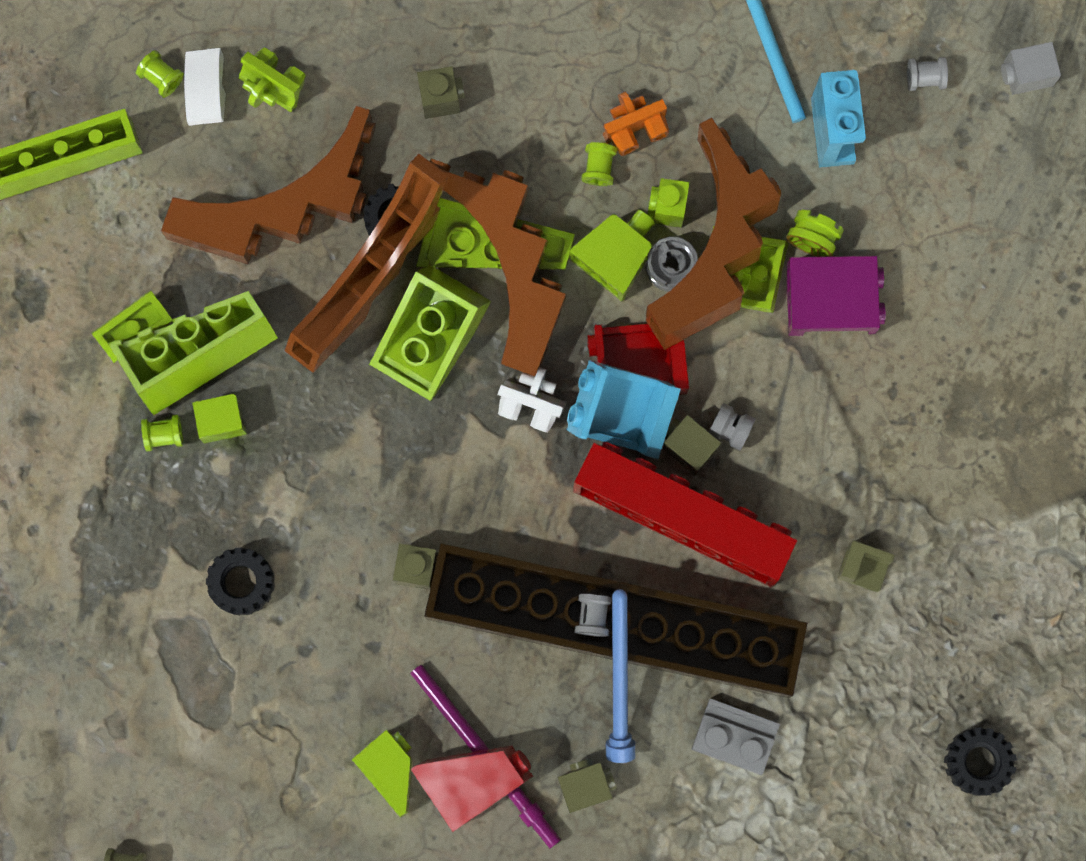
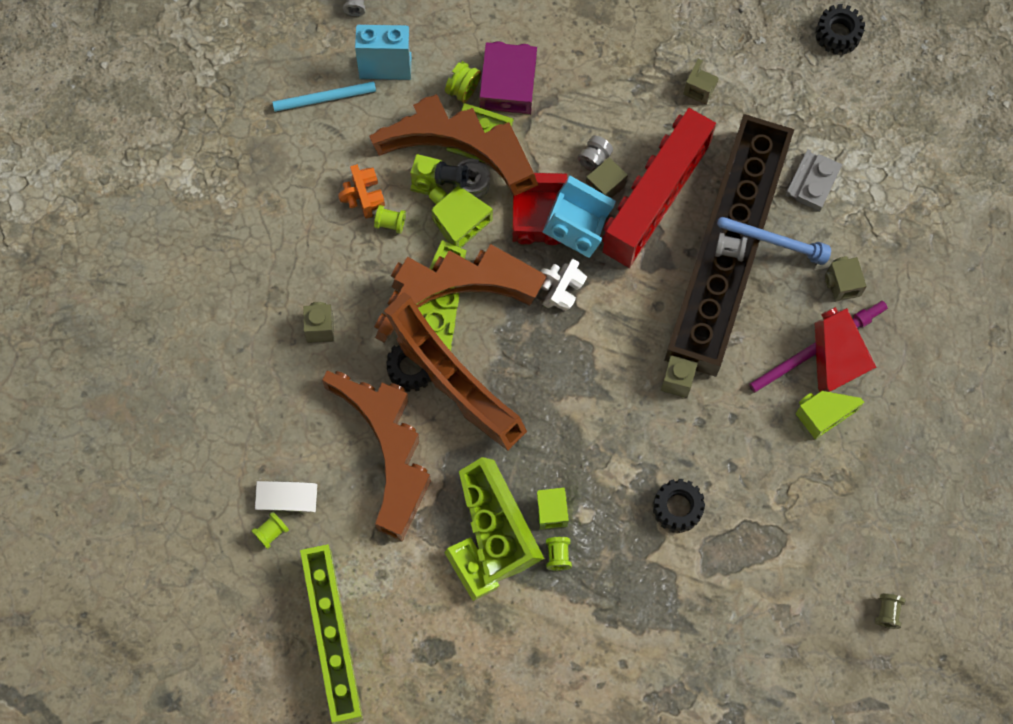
camera: 85 degrees left, 10 degrees down
(269, 84) = (291, 447): lime hips -> none
(429, 331) = (502, 349): lime slope -> none
(663, 232) = (451, 174): none -> black bush

